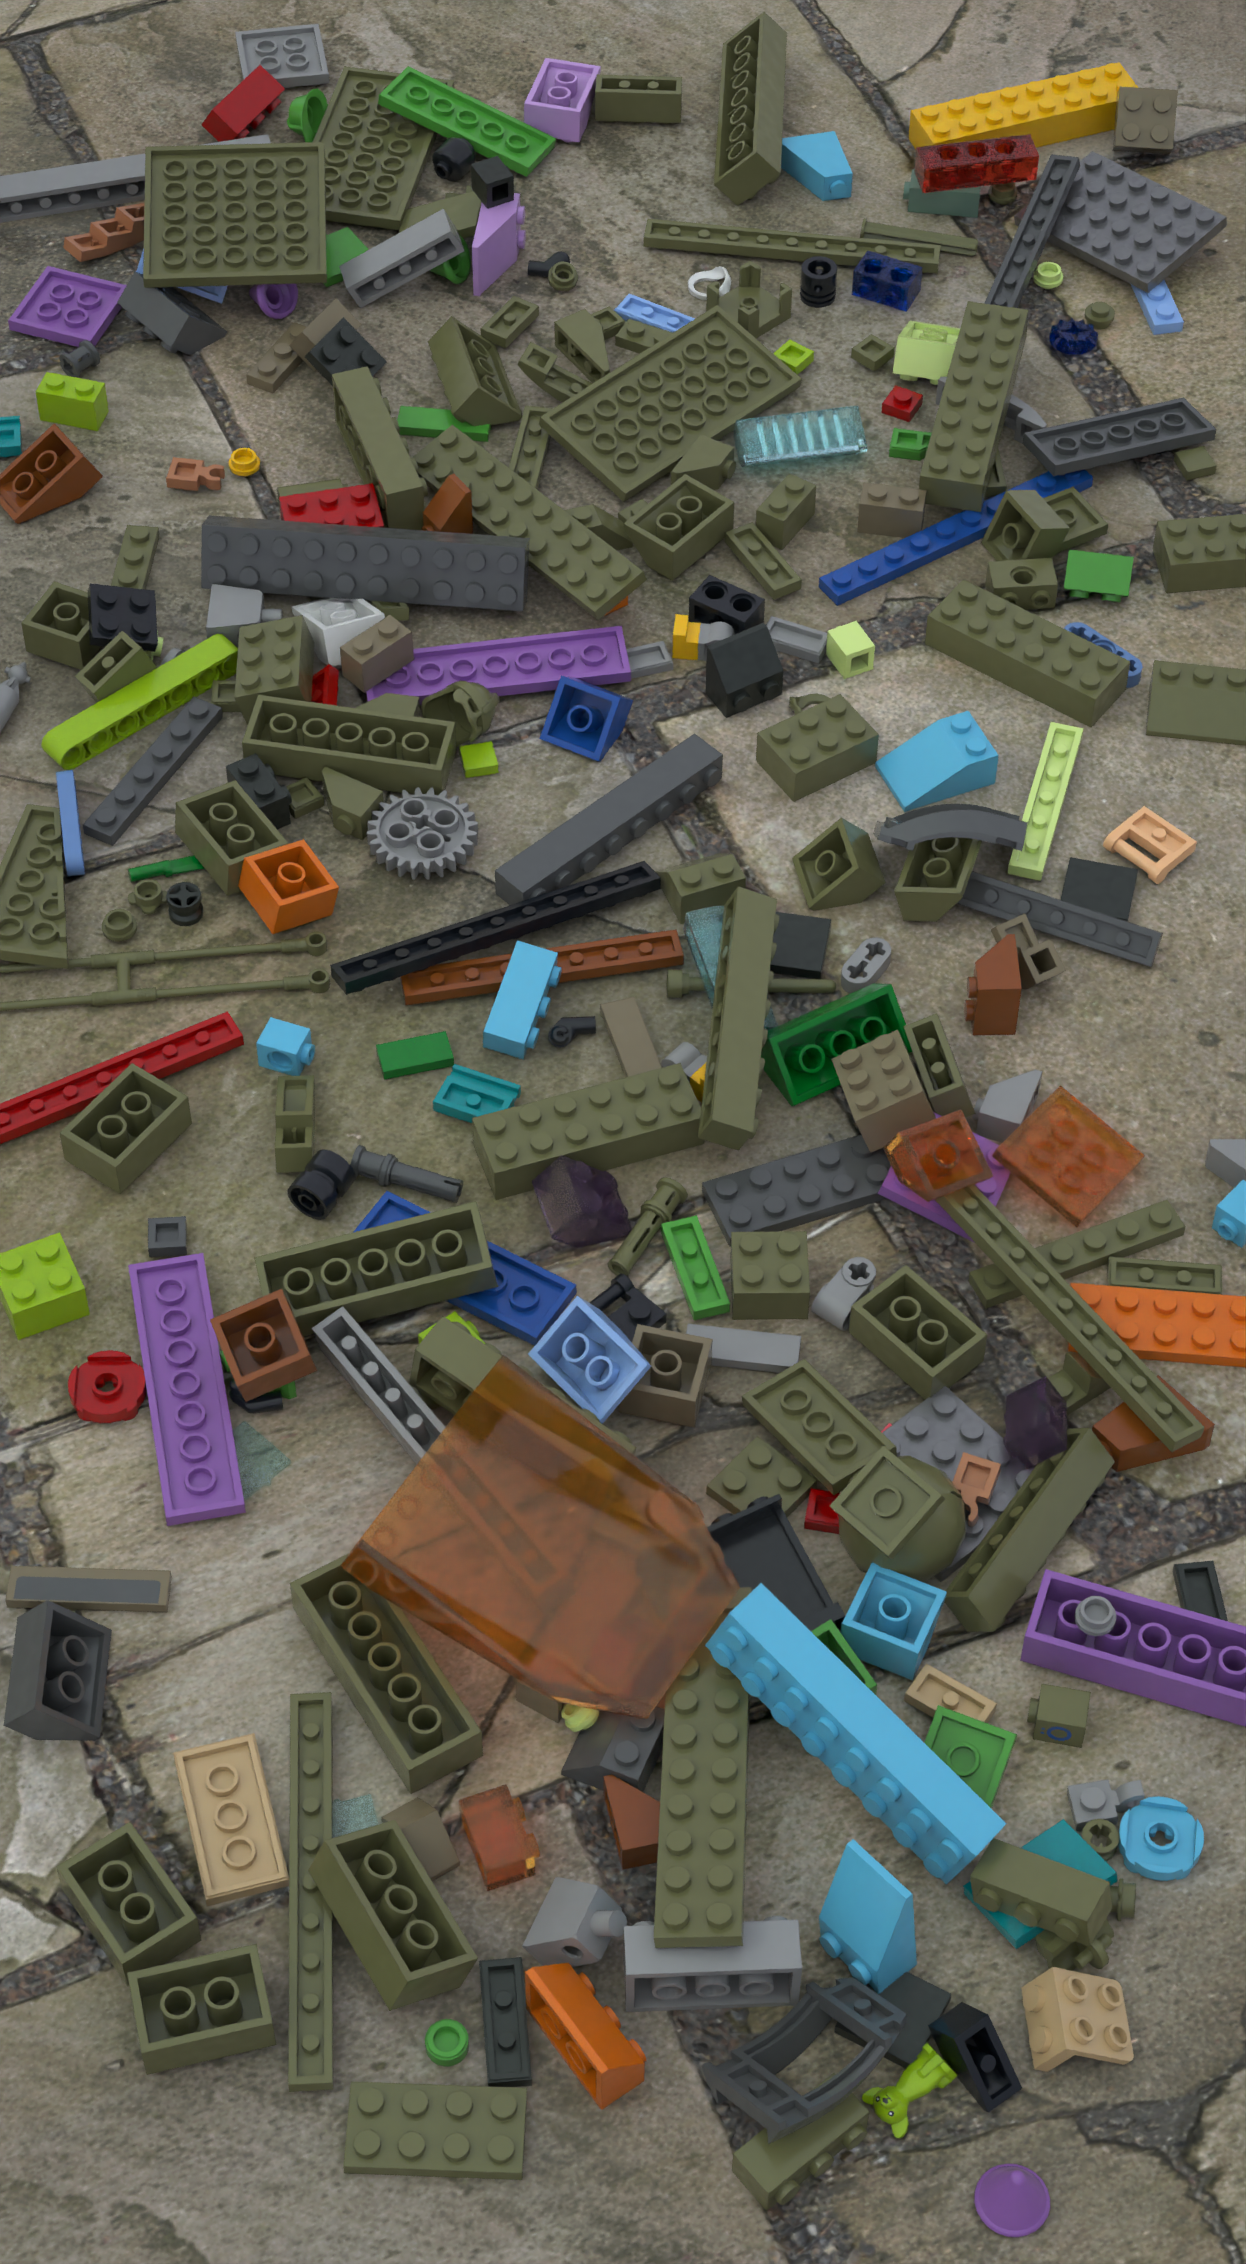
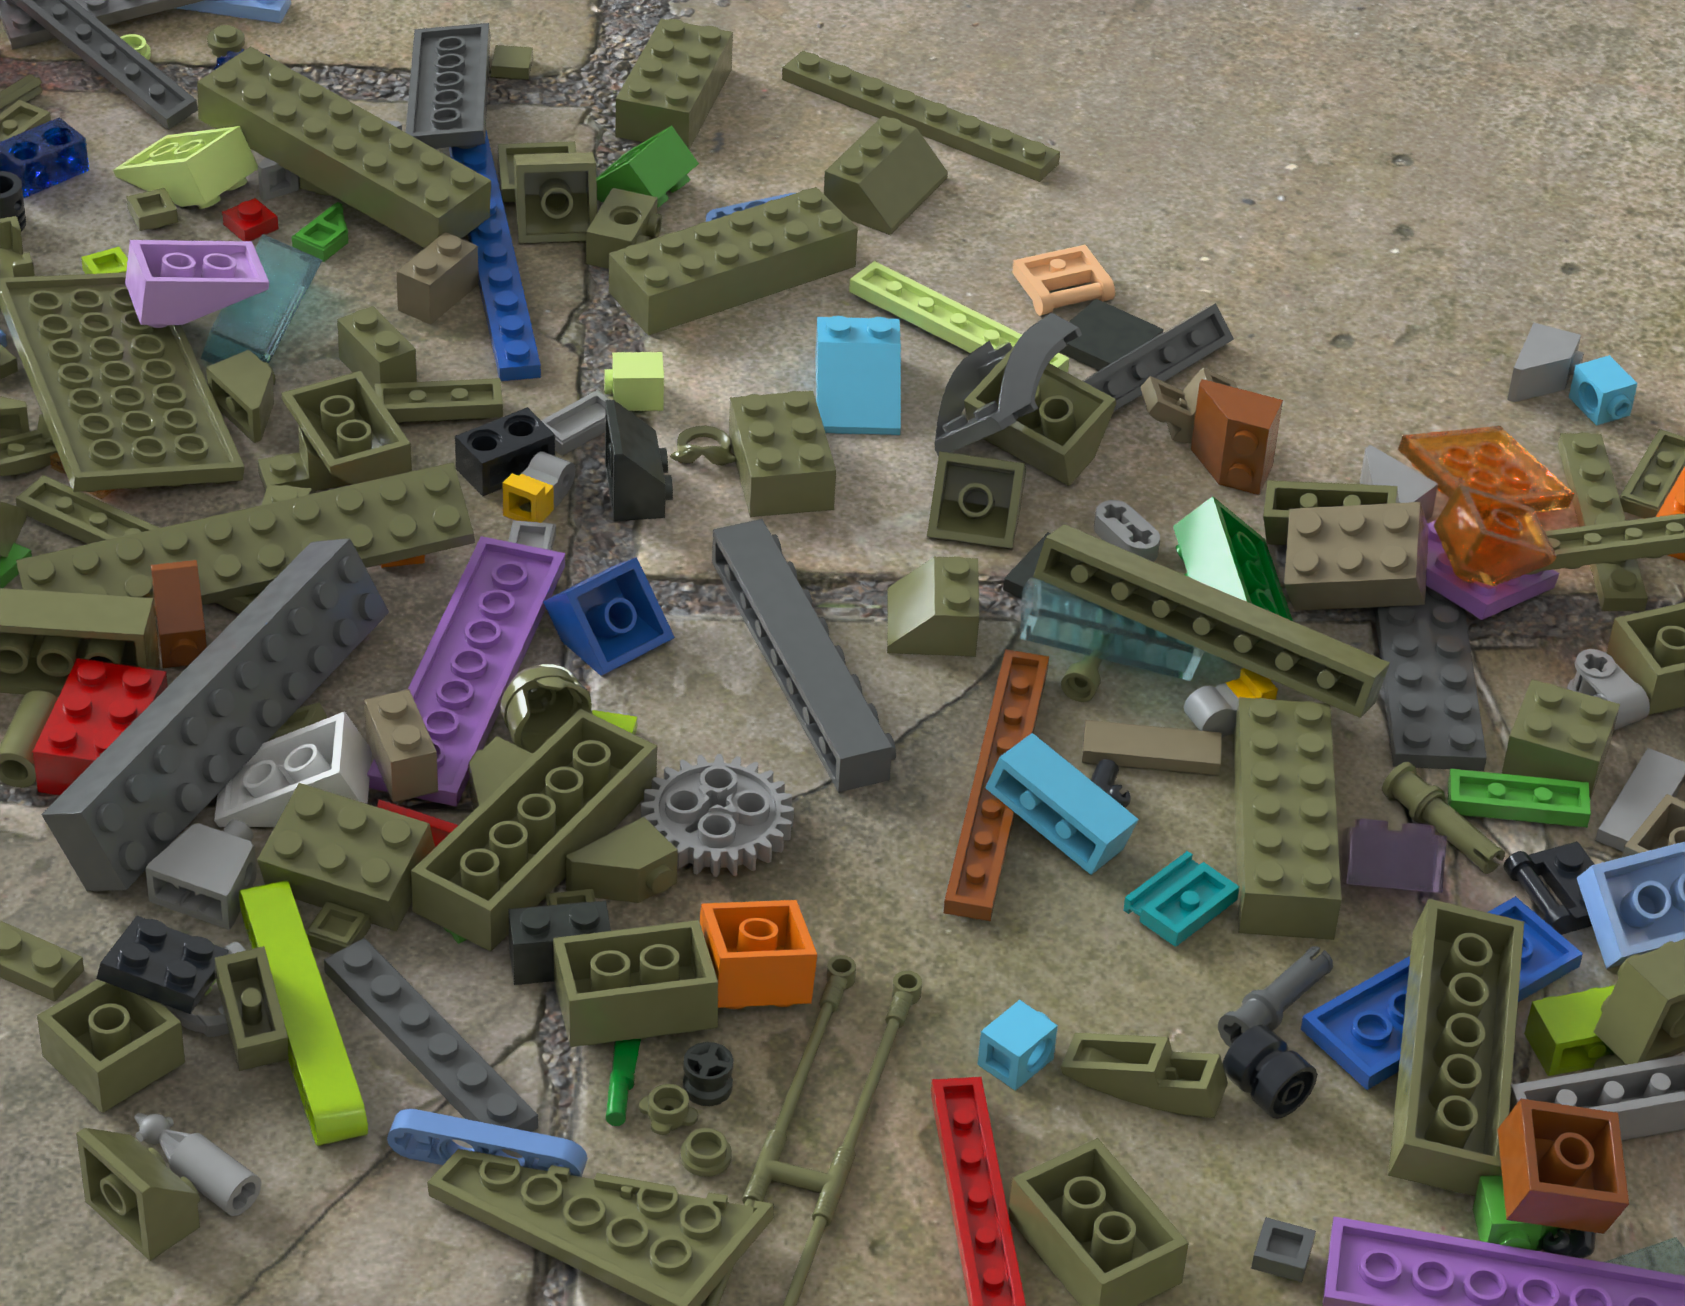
camera: 70 degrees left, 10 degrees down
(415, 1055) = (1078, 936): green tile -> none
(494, 927) = (928, 798): black plate -> none
(773, 385) = (190, 279): none -> lavender slope

